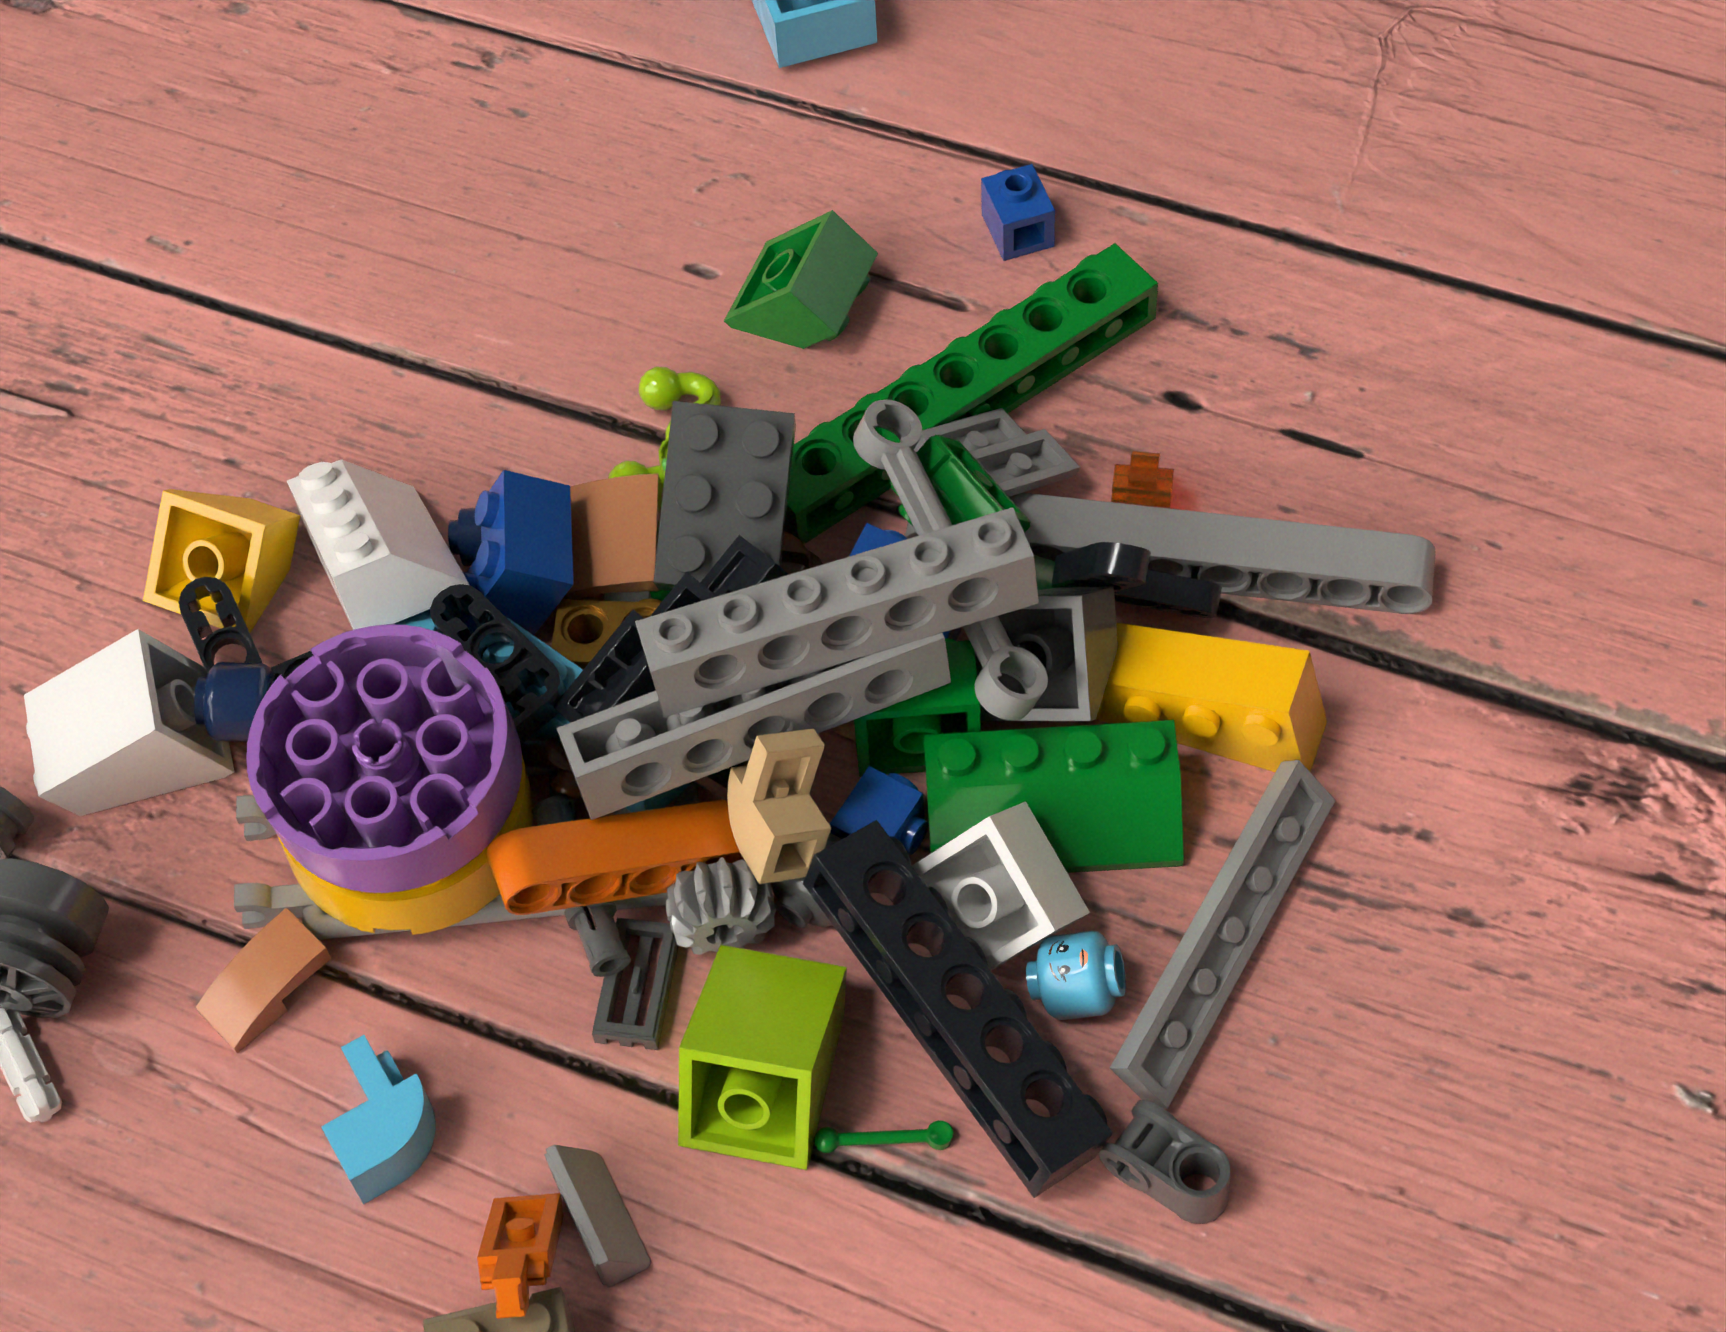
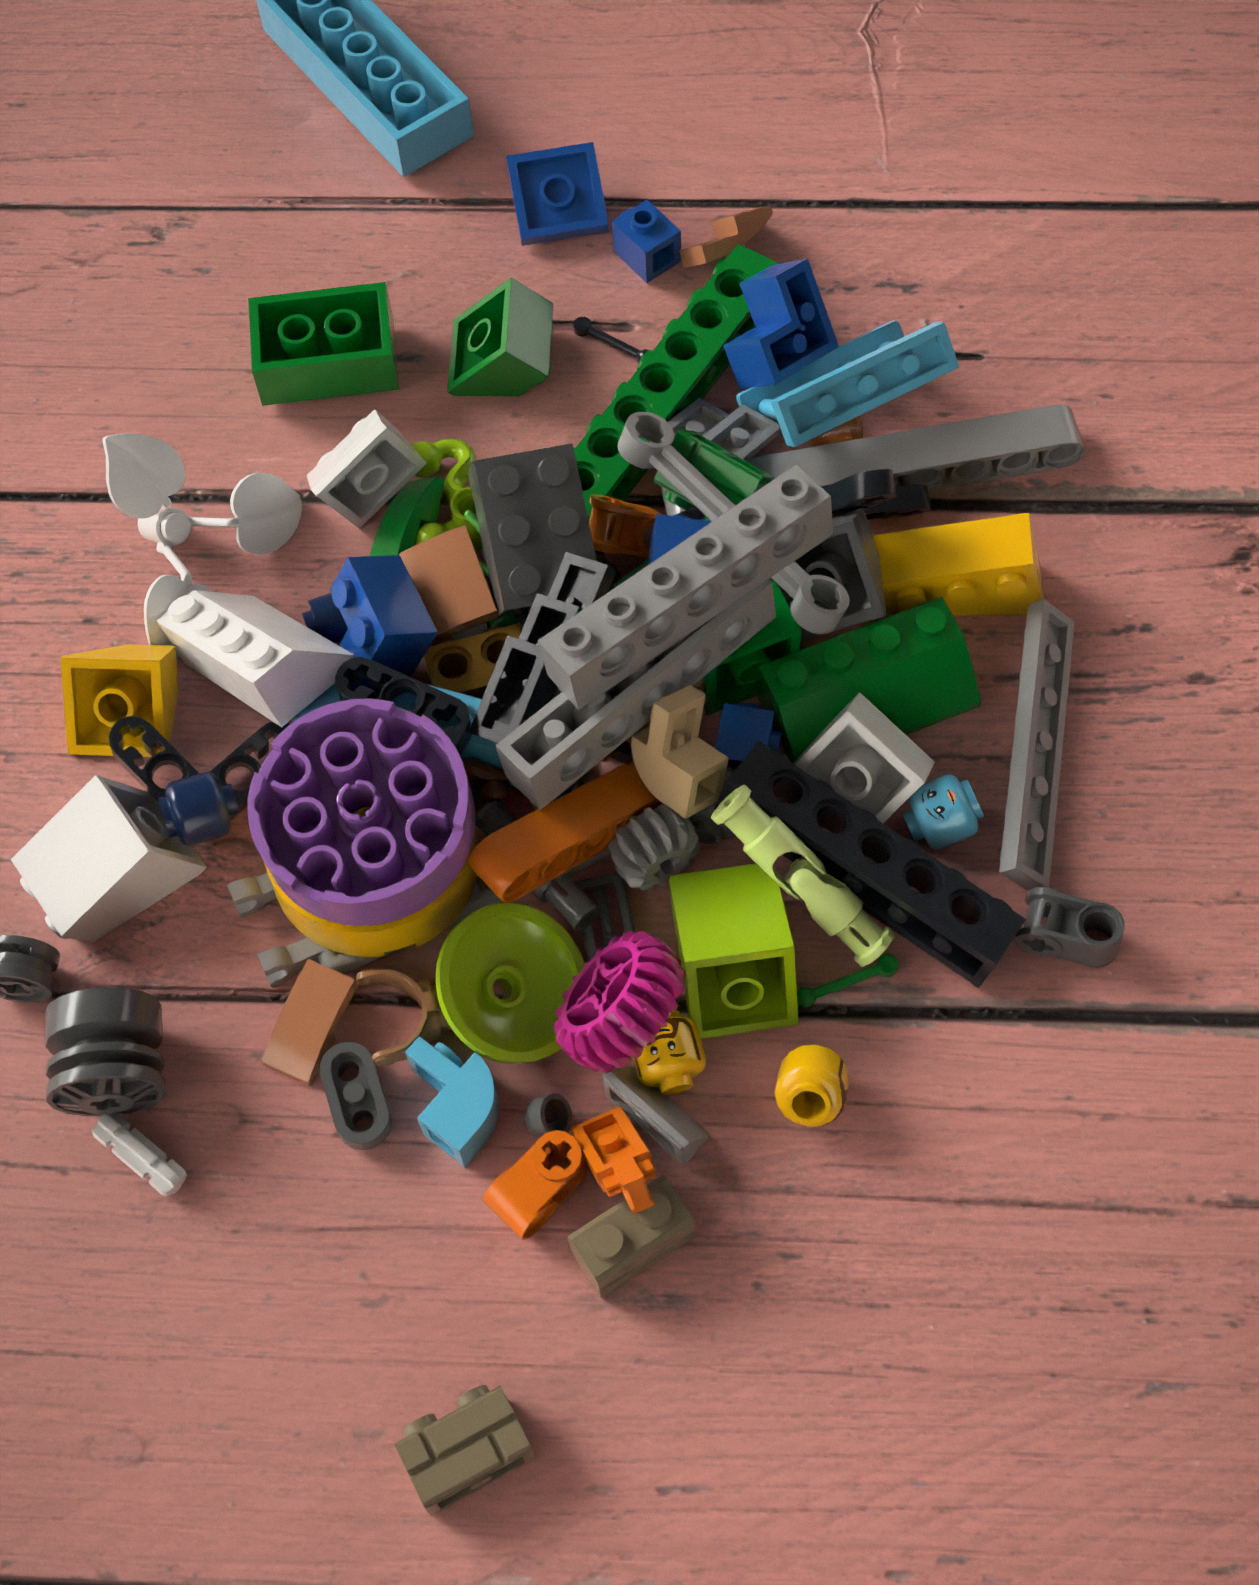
camera: 20 degrees left, 5 degrees up
(272, 1083) = (357, 1097): none -> dark grey plate
(318, 323) = (147, 471): none -> white plant
(401, 1014) = (424, 994): none -> medium nougat helmet
(420, 1251) = (532, 1188): none -> orange piece
(482, 1169) = (550, 1109): none -> dark grey hinge
(534, 1000) = (532, 964): none -> lime dish
(584, 381) = (365, 469): none -> white slope
(597, 1070) = (619, 1001): none -> dark pink gear
(603, 228) = (323, 343): none -> green brick
(620, 440) = (410, 509): none -> green slope
(635, 1148) = (673, 1056): none -> yellow head
(781, 1245) = (812, 1086): none -> yellow head
(833, 523) = (619, 525): none -> orange piece
(882, 1022) = (826, 898): none -> yellowish green piece
(908, 291) = (583, 327): none -> black hinge
(937, 131) = (557, 193): none -> blue hinge
(1118, 227) = (728, 233): none -> nougat slope
(1132, 352) = (788, 323): none -> blue brick
(1175, 436) = (853, 380): none -> medium azure fence

